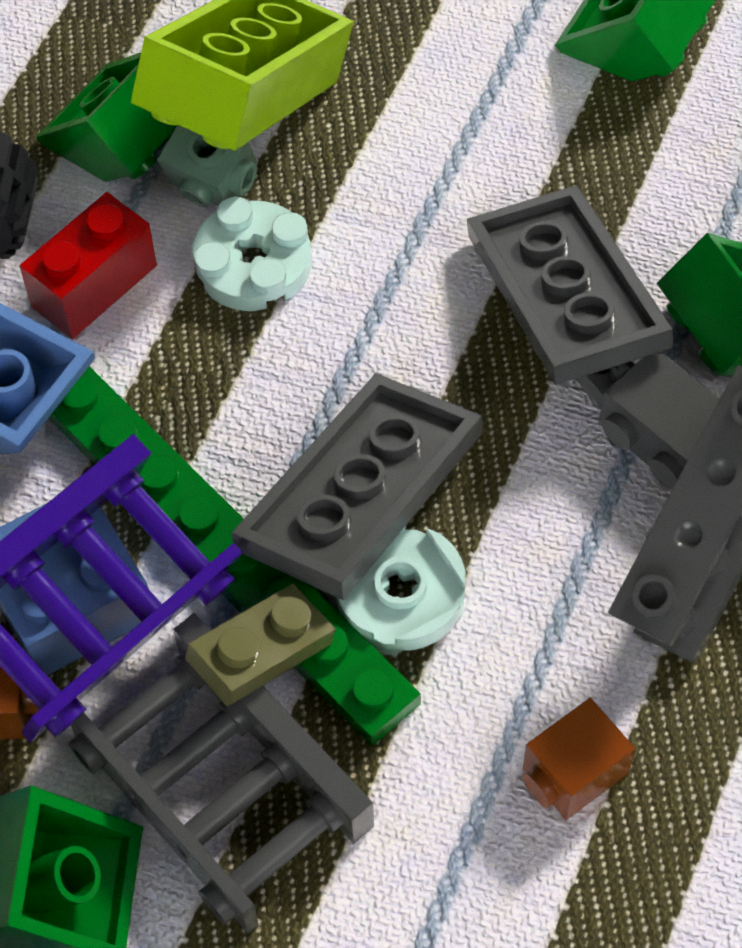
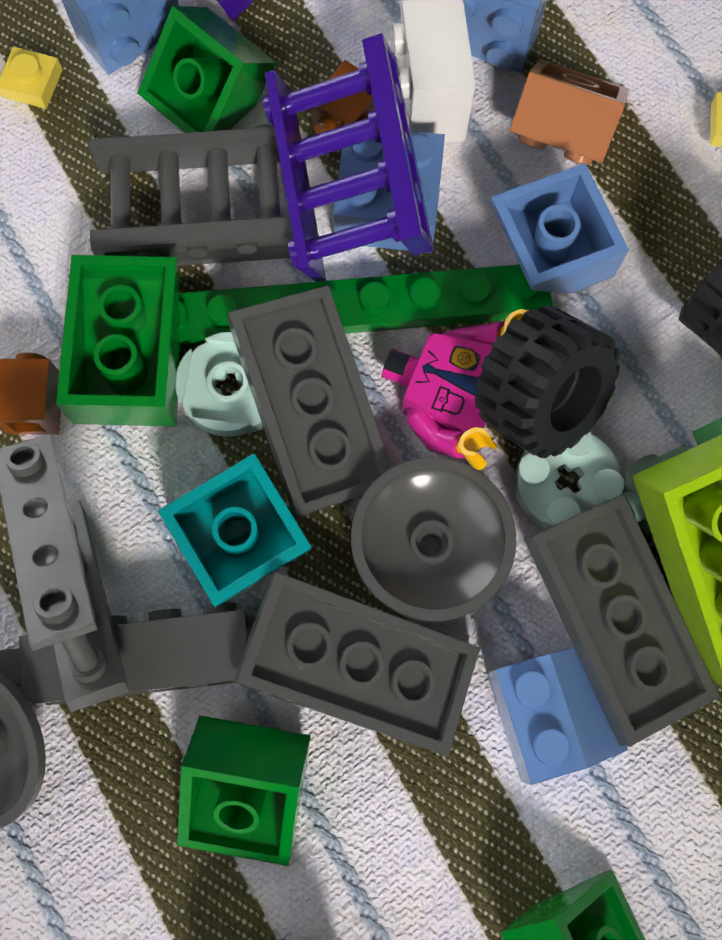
camera: 125 degrees right, 15 degrees up
(89, 265) = (644, 364): red brick -> none
(189, 274) = (547, 381): none -> black tyre
(237, 381) = (443, 389): none -> dark pink torso
(259, 644) = (239, 253): olive plate -> none
(349, 133) = (622, 620): none -> dark grey plate
(410, 272) = (440, 502): none -> dark grey dish
(448, 690) = (120, 341): none -> green slope
(474, 139) = (552, 716): none -> medium blue slope
(539, 455) = (234, 530): none -> teal slope

